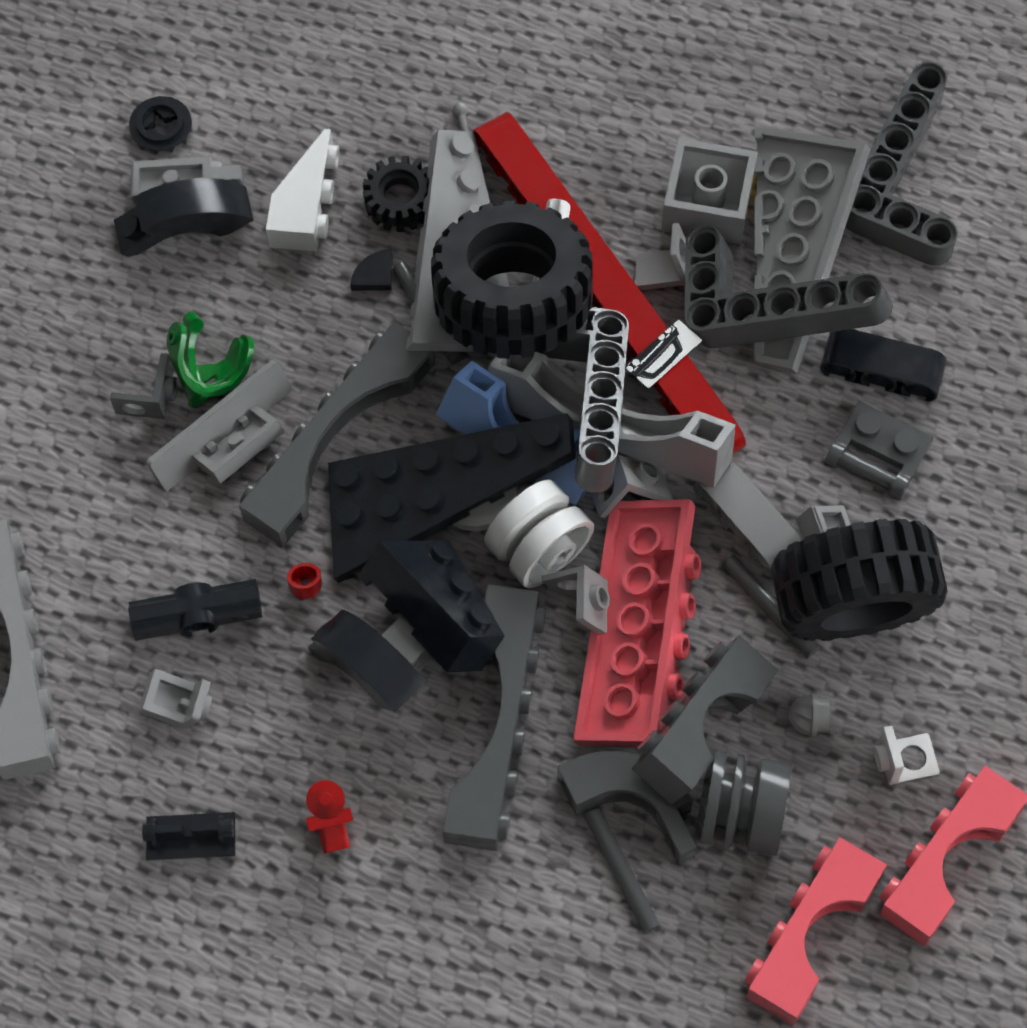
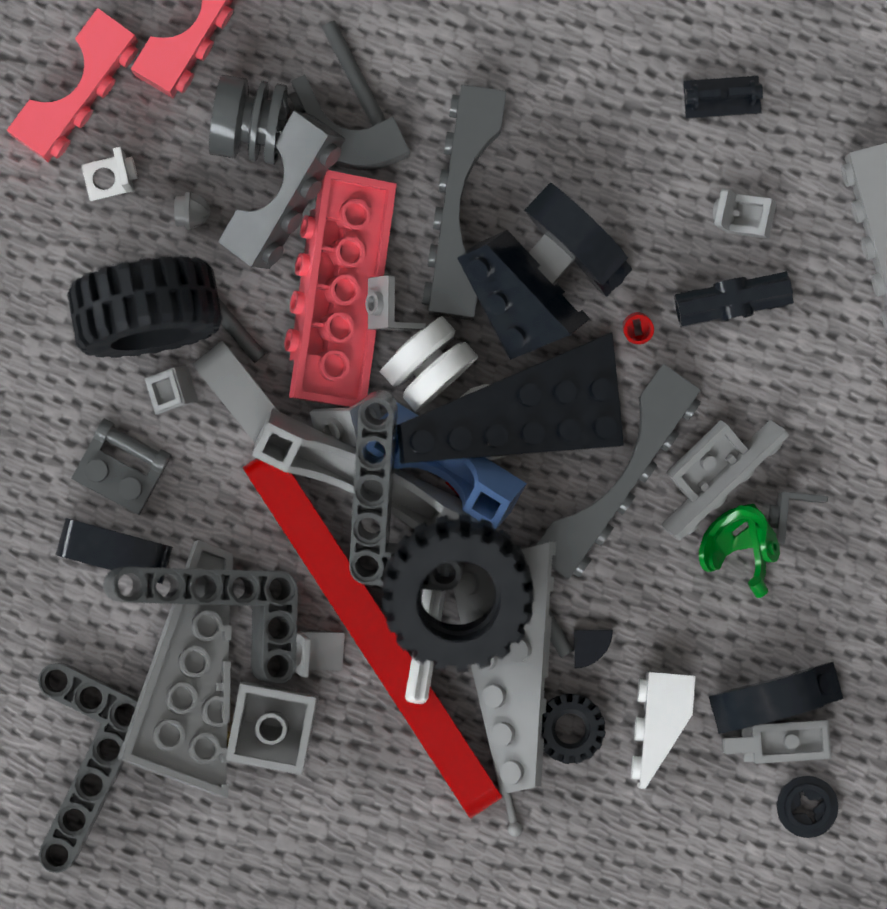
camera: 175 degrees right, 20 degrees up
(326, 803) = (602, 100): red hips -> none
(663, 354) = (317, 549): sticker -> none

